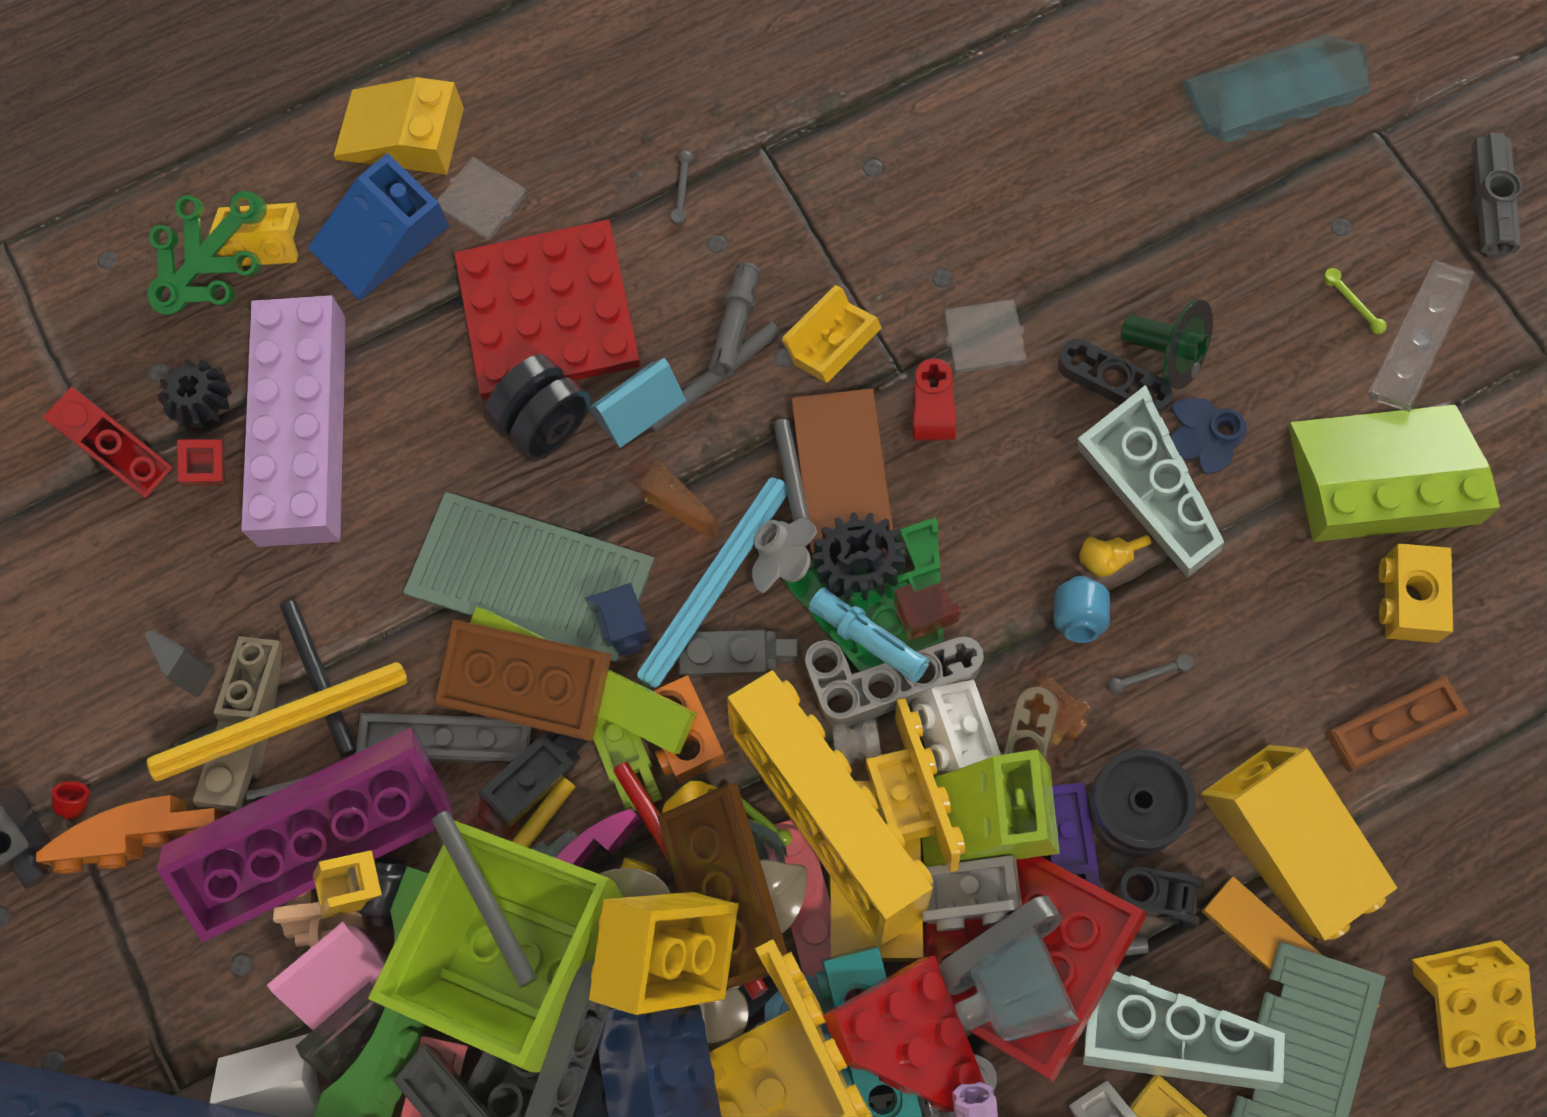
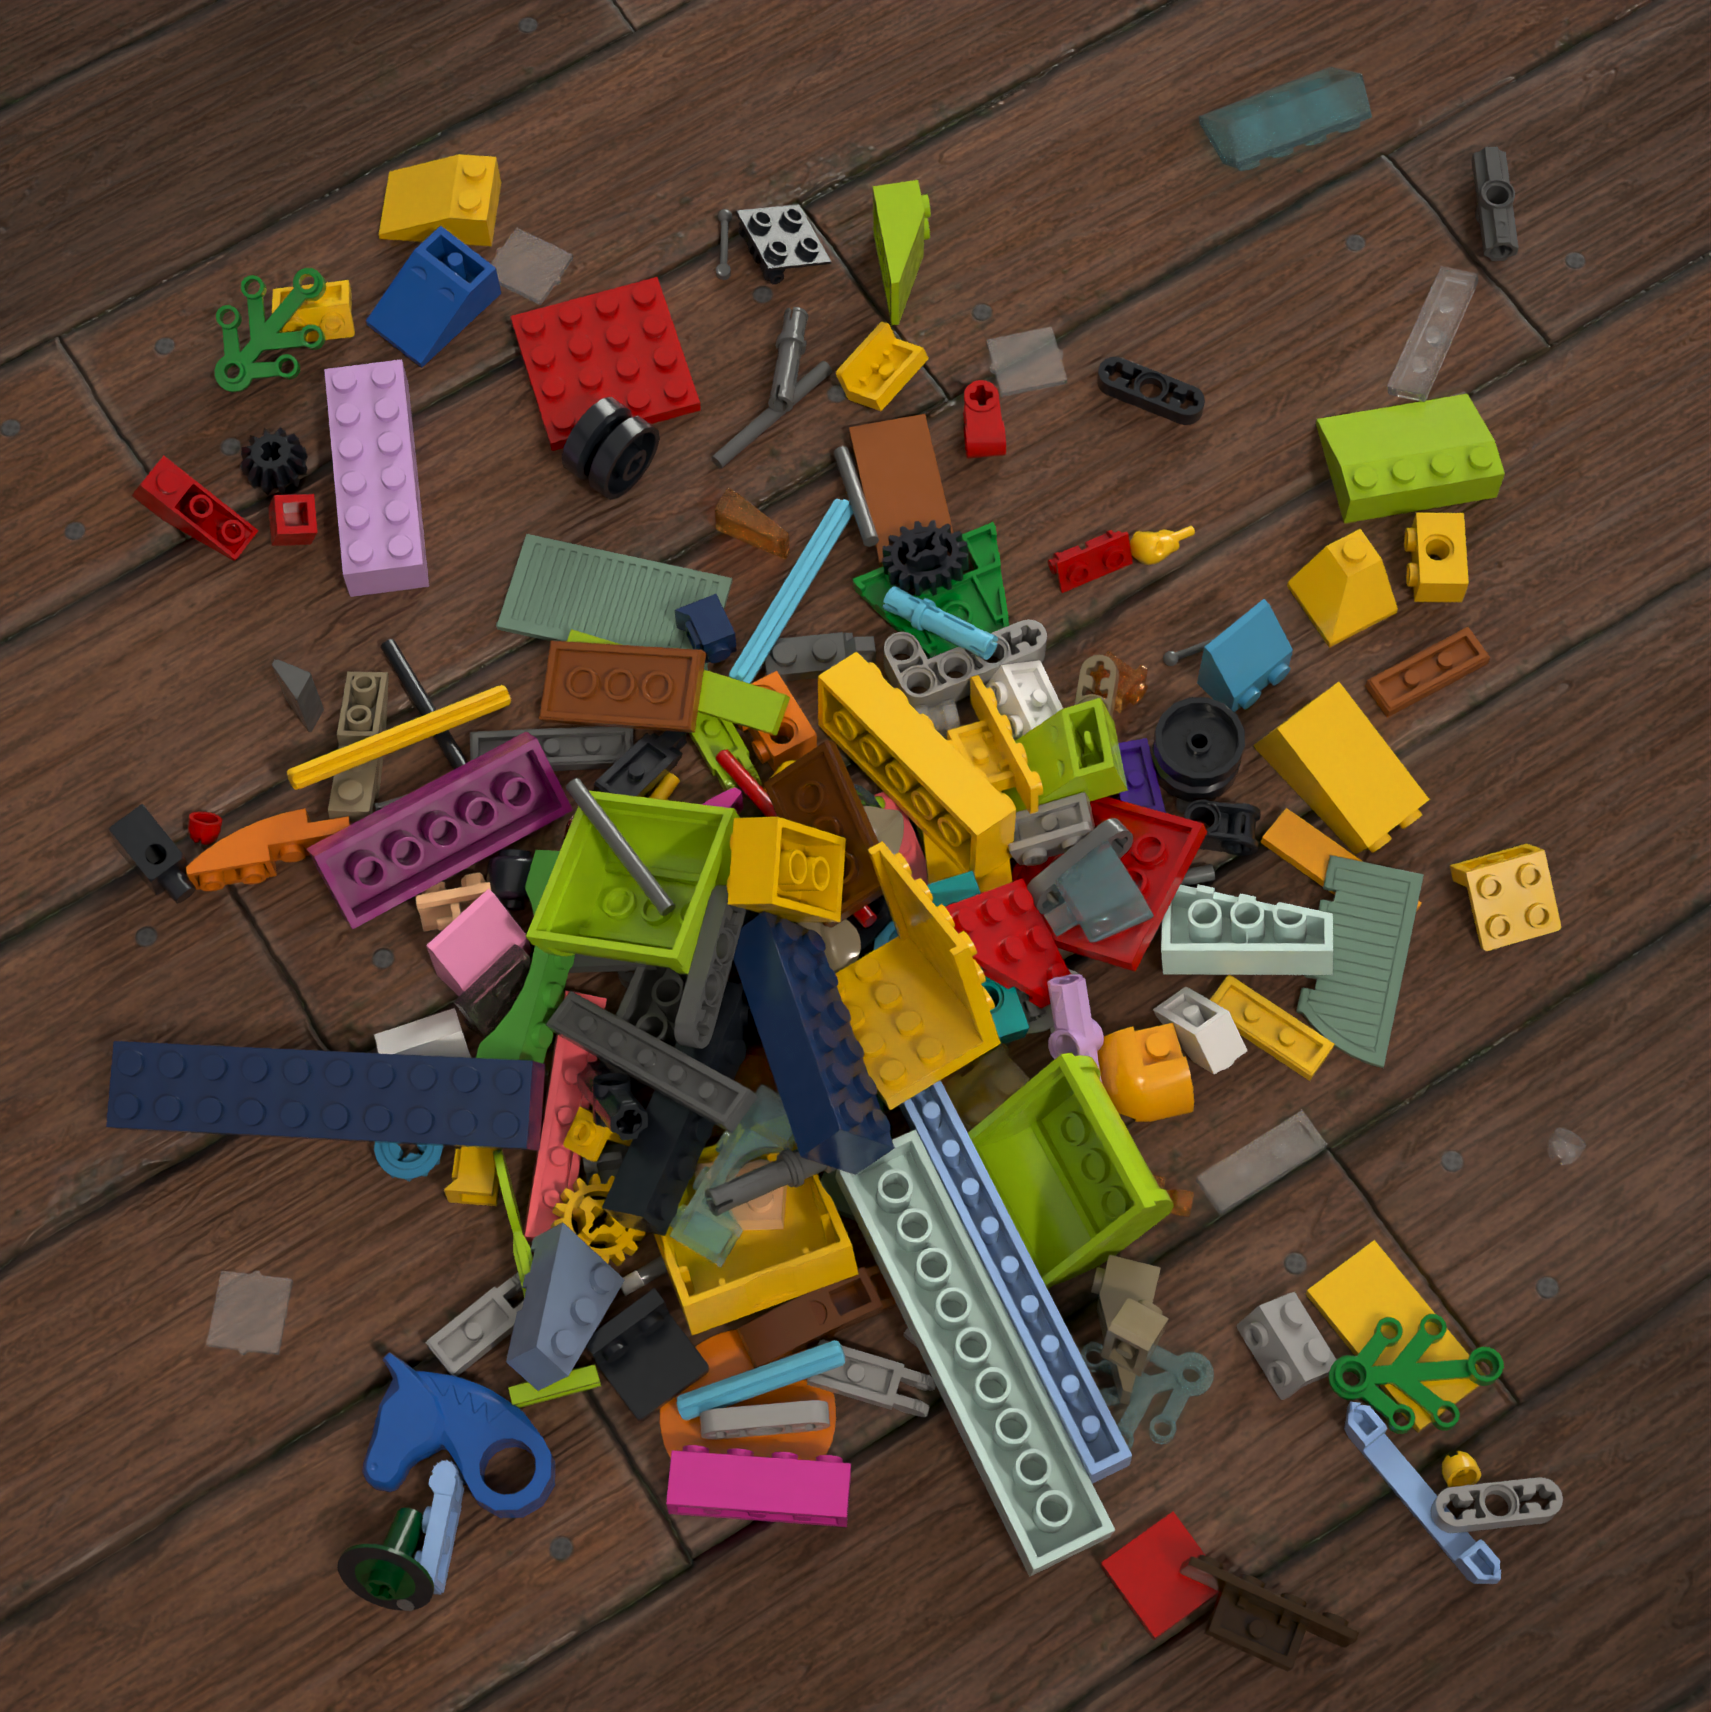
camera: 10 degrees left, 5 degrees down
(346, 883) = (485, 860): yellow window -> none
(638, 402) = (704, 439): medium azure slope -> none
(740, 187) = (780, 240): none -> hinge
(782, 552) = (853, 560): light grey plate -> none
(863, 186) = (899, 237): none -> lime slope
(925, 609) = (990, 601): clear red panel -> none
(1054, 561) = (1099, 558): none -> red hinge
(1081, 609) = (1134, 592): dark azure head -> none
(1150, 477) = (1189, 474): light aqua wedge -> none
(1183, 343) = (1211, 351): dark green piece -> none
(1199, 433) = (1234, 435): dark blue plate -> none
(1200, 701) = (1245, 659): none -> dark azure slope
(1311, 622) = (1344, 588): none -> yellow slope
(1332, 278) = (1349, 289): lime hinge -> none

